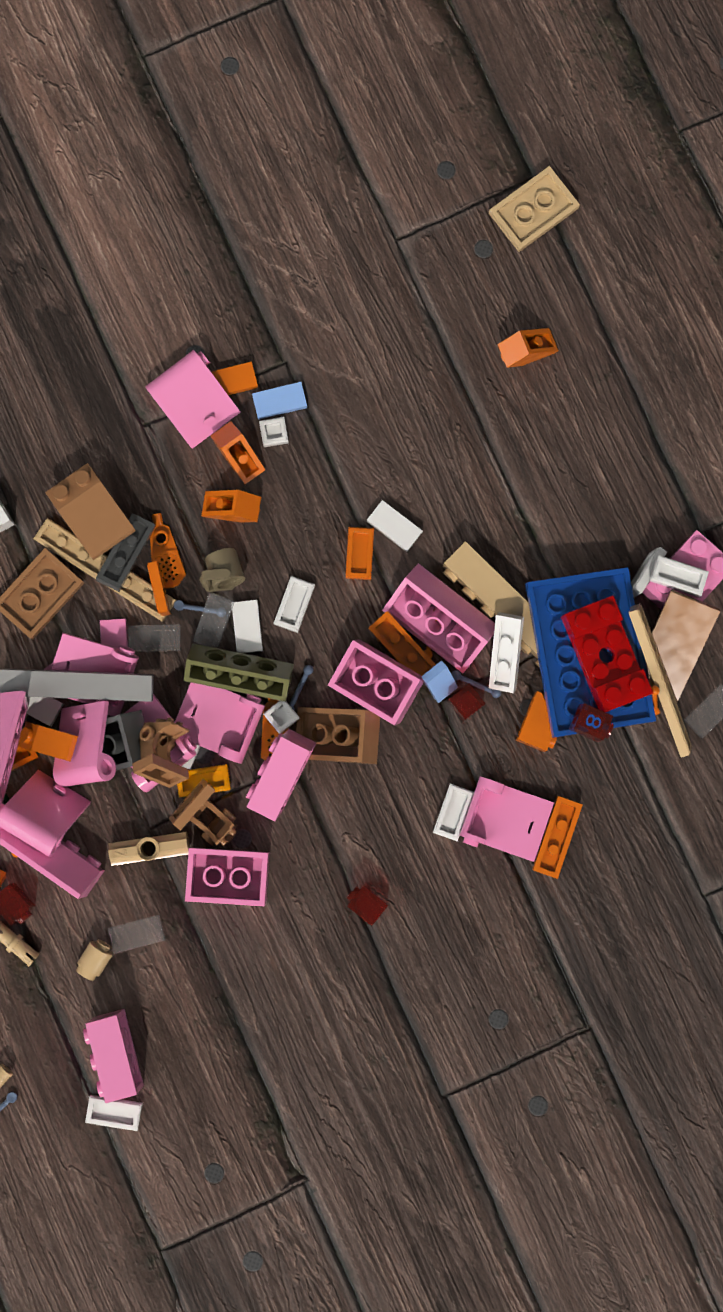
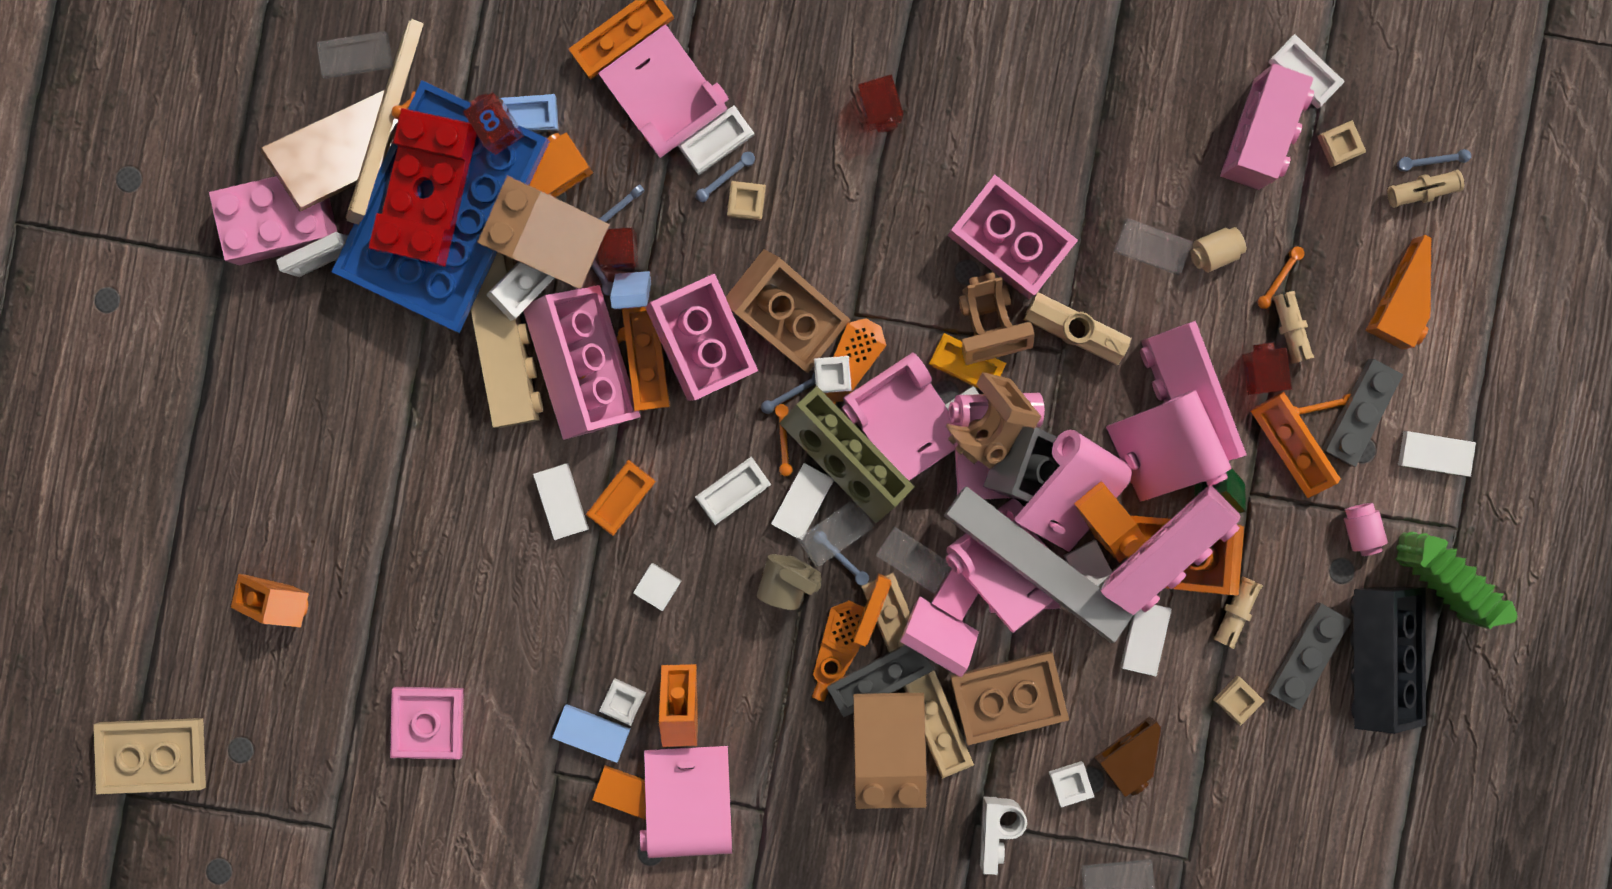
camera: 145 degrees left, 5 degrees up
(43, 991) = (1295, 254): none -> orange hinge
(60, 1082) = (1341, 143): none -> tan tile
(106, 600) = (940, 637): none -> bright pink tile
(231, 506) = (727, 649): orange slope -> none
(271, 639) = (785, 468): none -> orange hinge
(279, 774) = (878, 307): bright pink brick -> none
(300, 514) = (657, 586): none -> white tile
(383, 339) = (426, 723): none -> bright pink tile
(408, 787) = (746, 200): none -> tan tile
(426, 814) = (747, 159): none -> sand blue hinge
(491, 704) = (636, 192): none -> sand blue hinge
(514, 677) = (543, 232): none -> medium nougat slope
(578, 750) = (534, 112): none -> light blue tile
(679, 576) = (280, 220): white tile -> none

